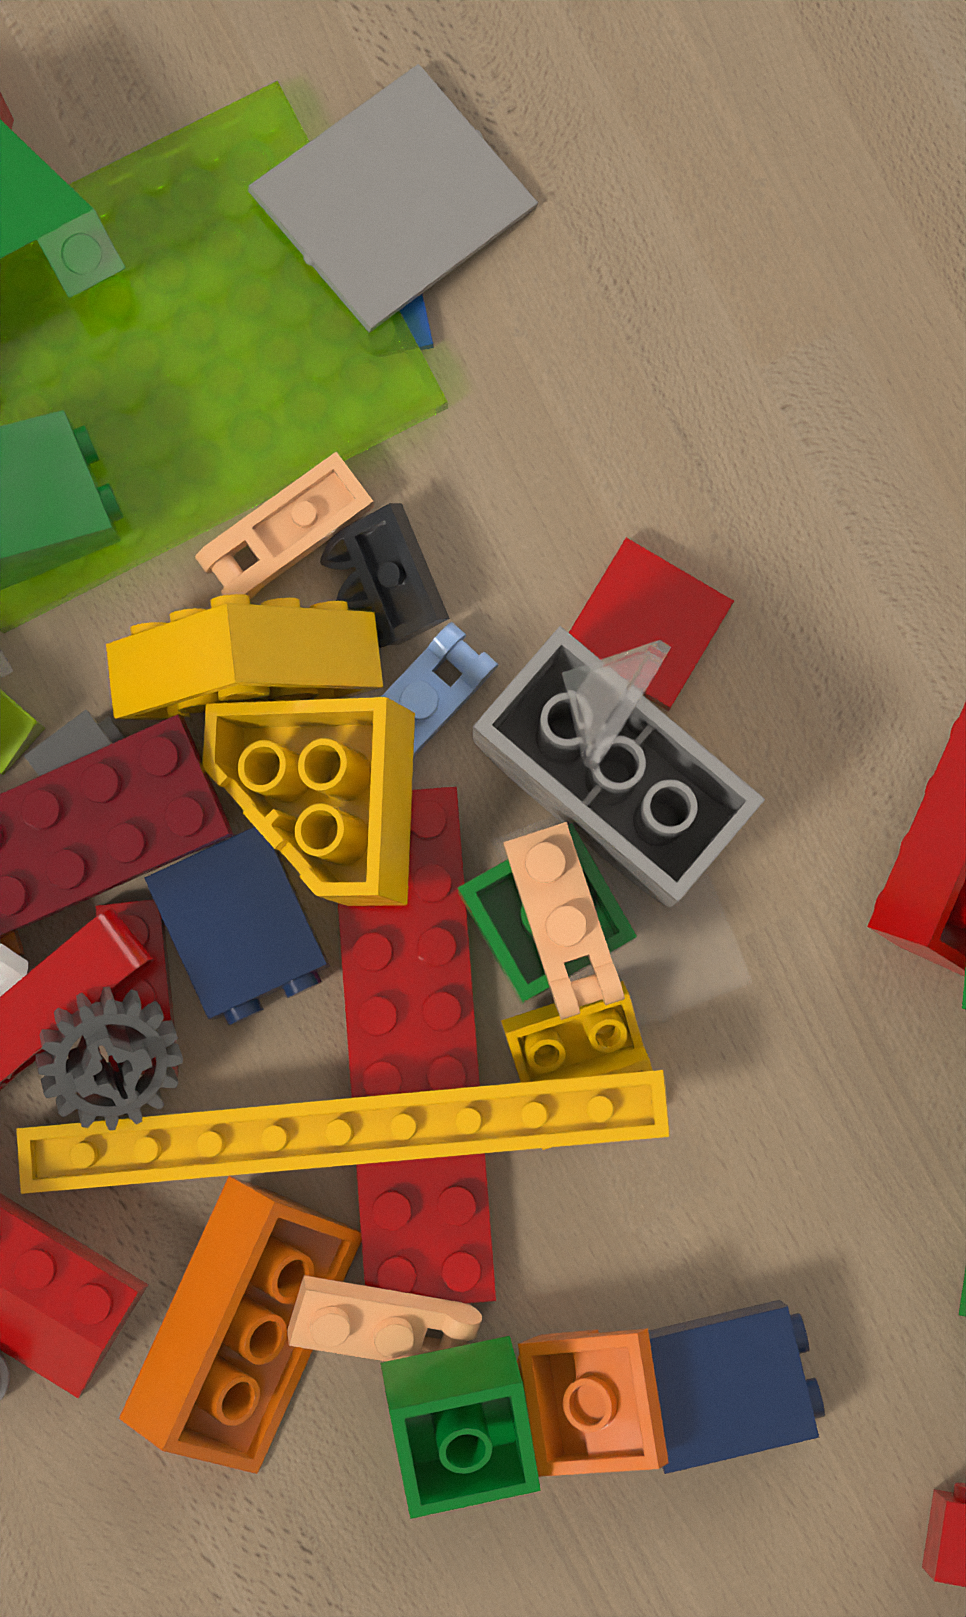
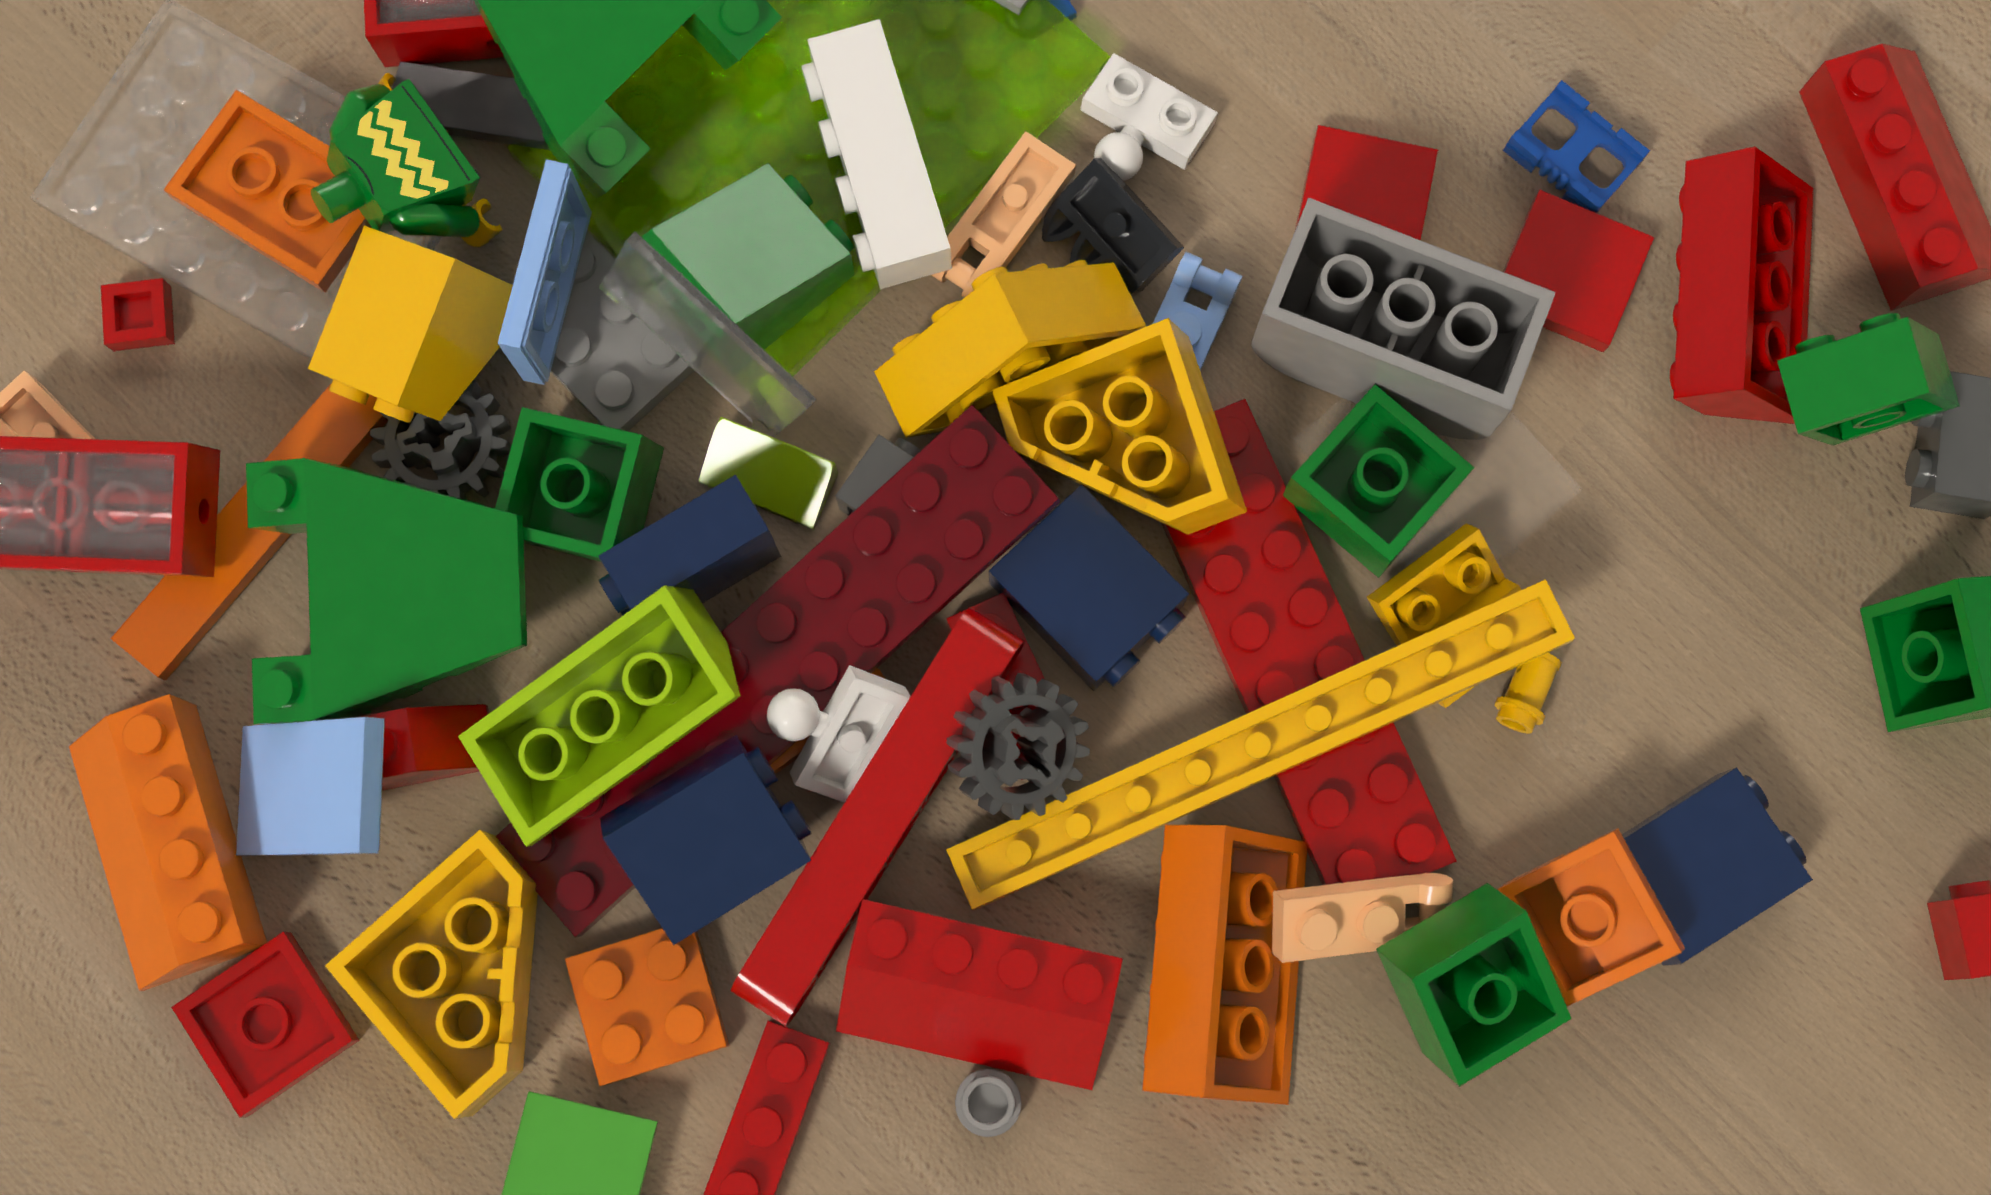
camera: 15 degrees left, 5 degrees down
(178, 431) = (879, 155): none -> white brick
(462, 470) = (1144, 114): none -> white plate
(562, 917) = (1401, 471): light nougat plate -> none
(606, 695) = (1380, 241): clear slope -> none
(622, 1165) = (1527, 693): none -> yellow pin
(822, 763) = (1583, 260): none -> red tile
(853, 654) = (1563, 164): none -> blue piece

